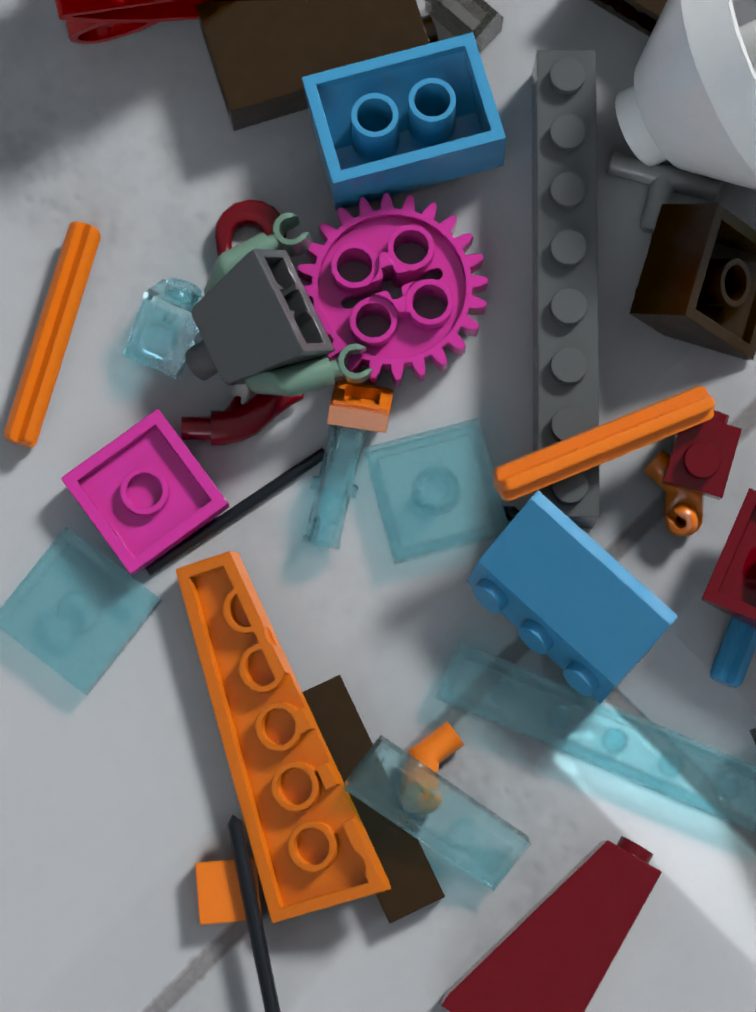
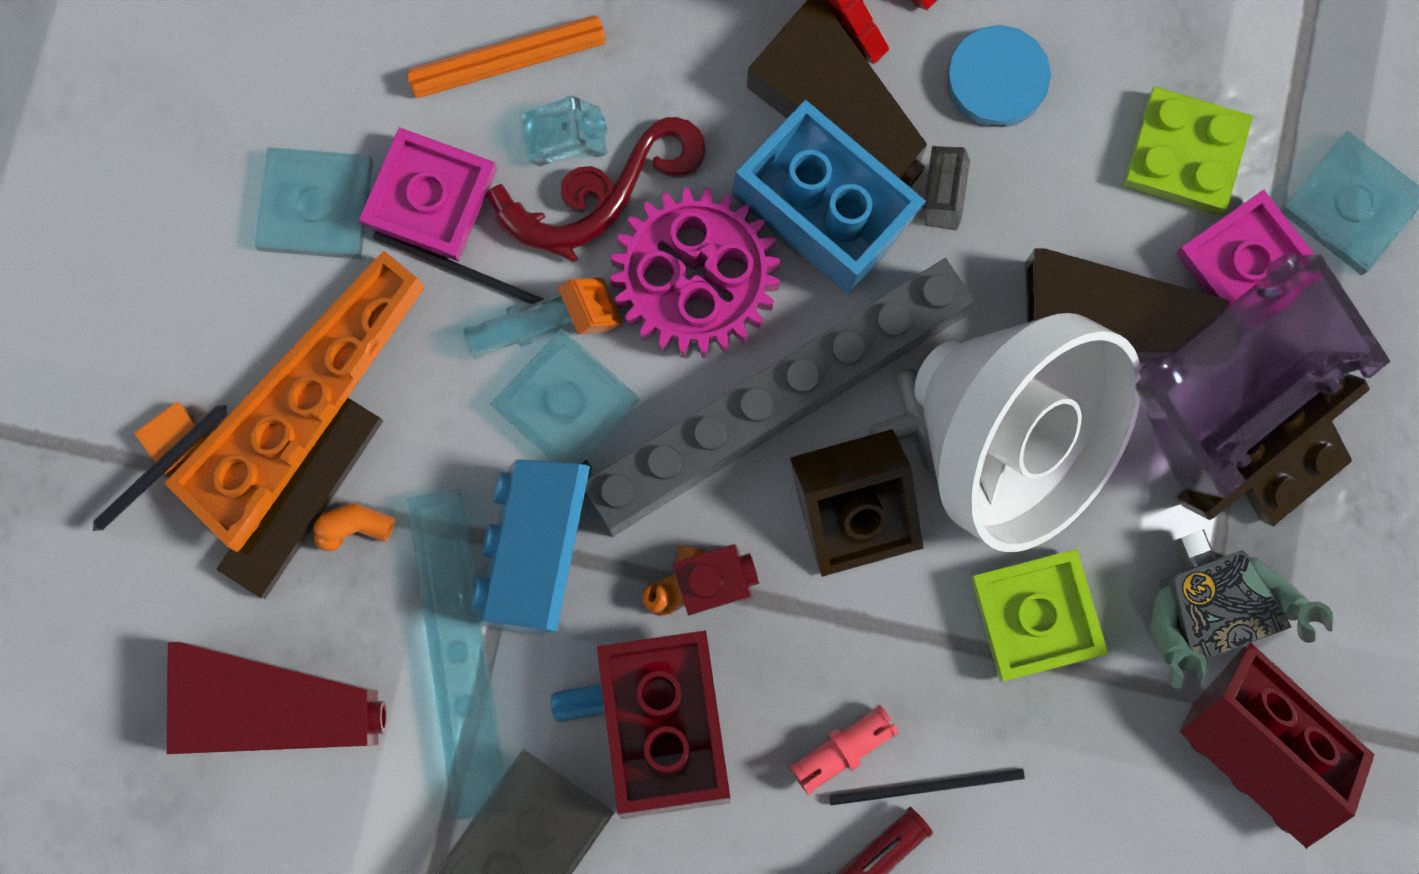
camera: 60 degrees right, 0 degrees up
(262, 322) = (599, 189): dark grey torso -> none
(437, 813) = (315, 551): clear light blue tile -> none
(603, 443) = (662, 494): orange axle -> none

